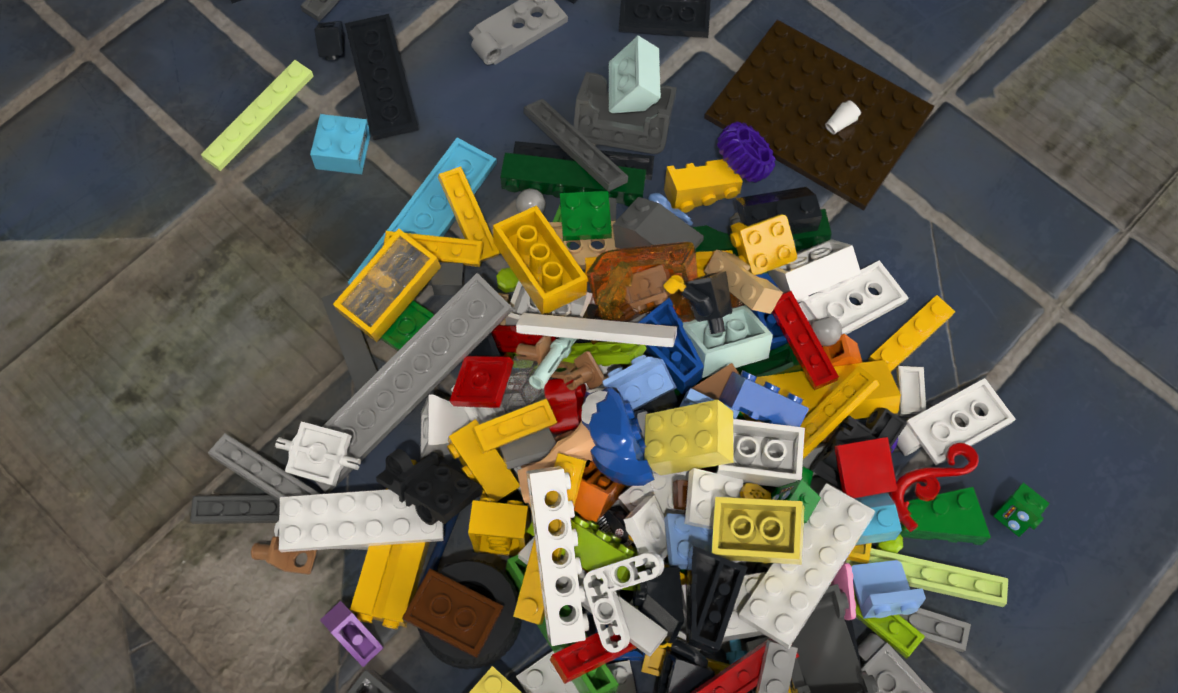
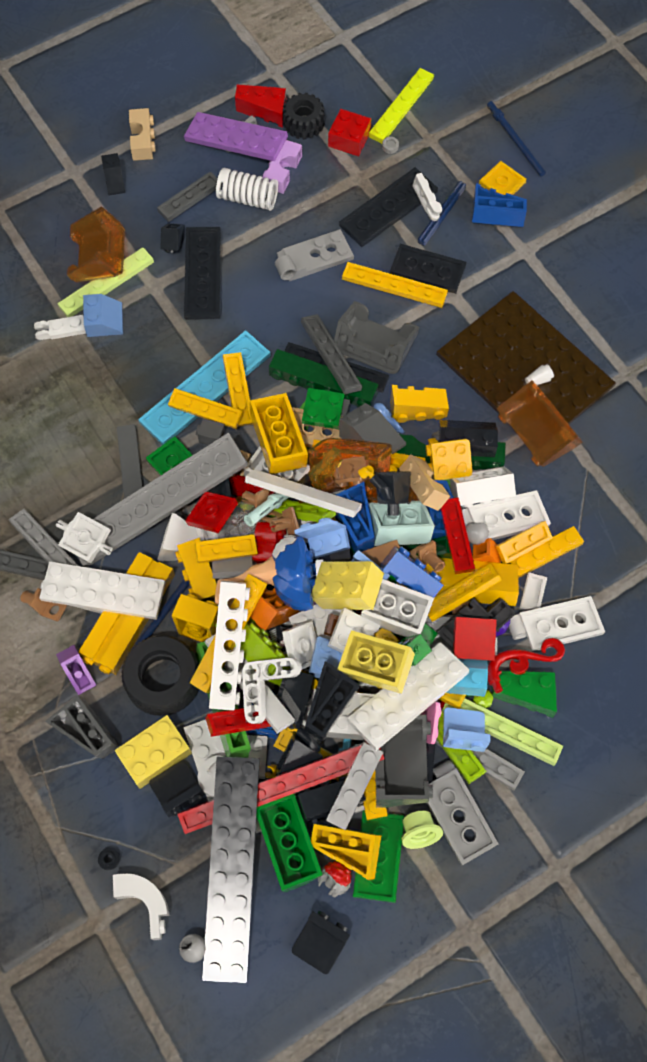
camera: 15 degrees right, 0 degrees up
(212, 185) = (60, 328): none -> white hinge
(238, 70) = (100, 247): none -> clear orange windscreen
(264, 158) = (102, 315): none -> medium blue slope
(340, 144) = (159, 317): medium azure piece -> none
(387, 285) = (164, 427): brick -> none
(433, 488) = (154, 577): black plate -> none
(453, 613) = (148, 670): reddish brown tile -> none
(507, 280) = (253, 443): lime tile -> none
(530, 198) = (288, 387): light grey piece -> none
(615, 40) = (394, 284): none -> yellow plate
(634, 77) = (390, 312): light aqua slope -> none
(746, 152) = (457, 386): dark purple gear -> none
(774, 374) = (428, 555): none -> medium nougat bracket
(861, 177) = (539, 424): none -> clear orange windscreen
(884, 329) = (524, 542): none -> yellow plate
(1022, 510) = (588, 698): green head -> none

